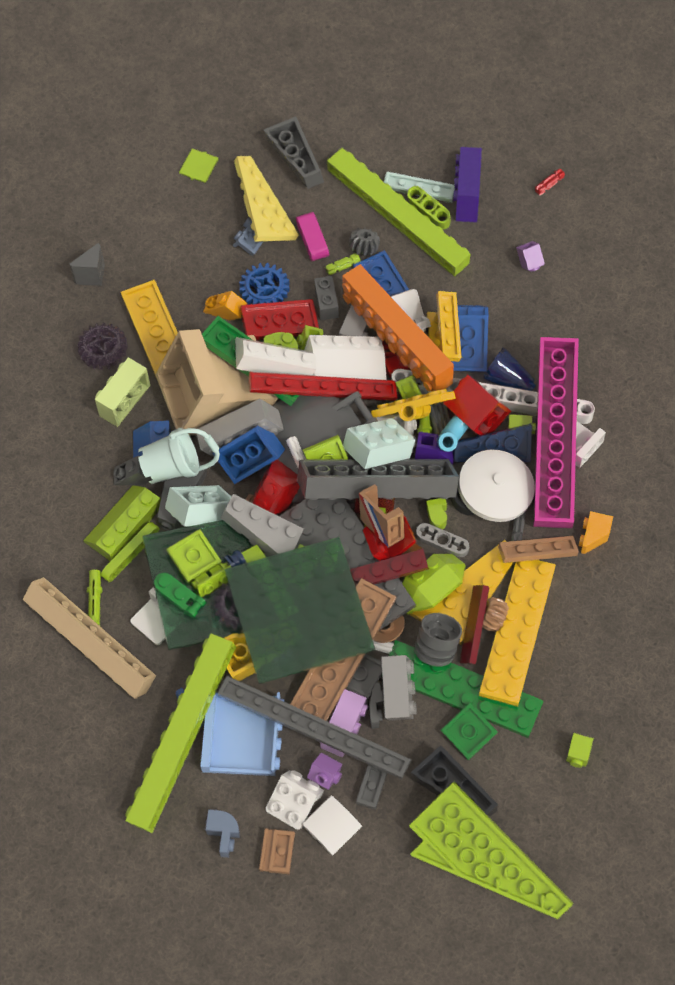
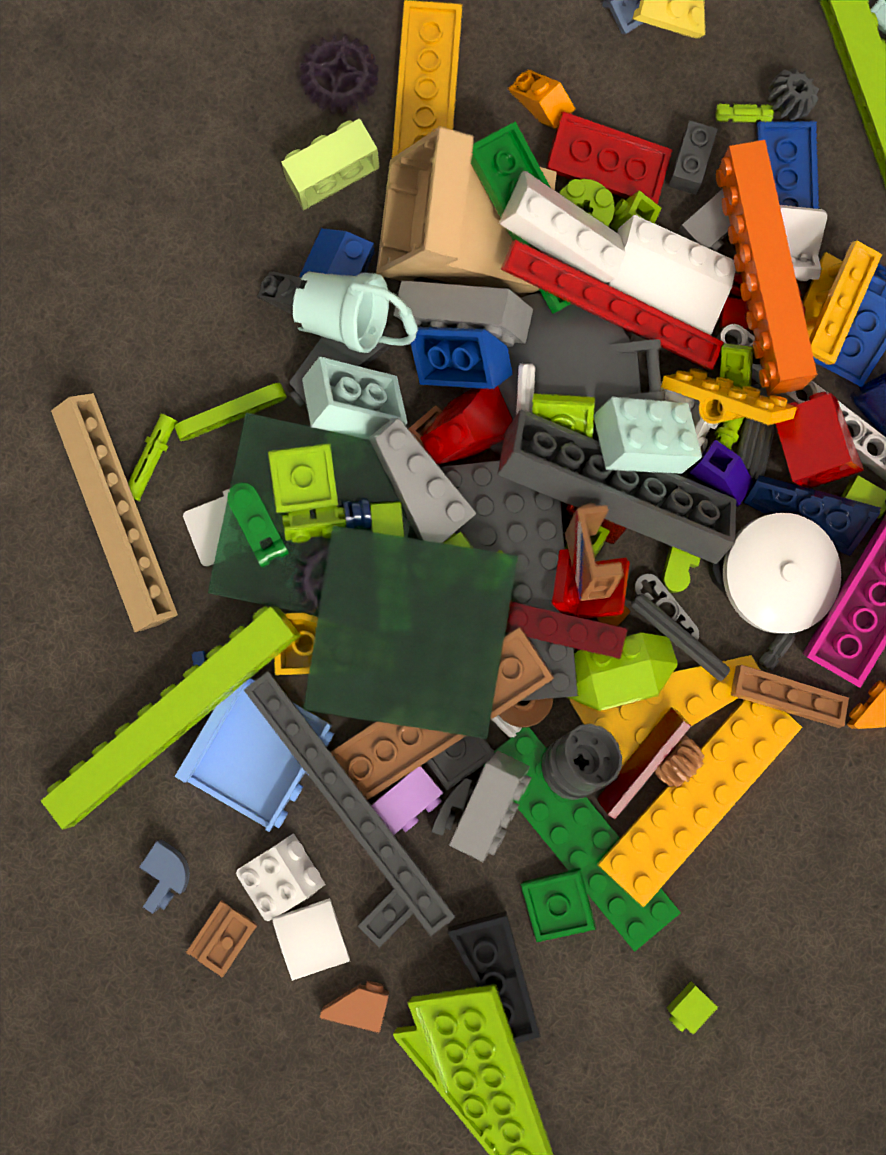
camera: 20 degrees right, 20 degrees up
(123, 521) = (241, 362): lime slope -> none
(262, 282) = (603, 76): blue gear -> none
(312, 236) = (722, 46): dark pink beam -> none
(325, 771) = (337, 865): medium lavender brick -> none
(381, 849) = (359, 1007): none -> nougat slope
(451, 434) = (757, 467): medium azure cylinder -> none
(457, 547) = (680, 637): none -> dark grey axle

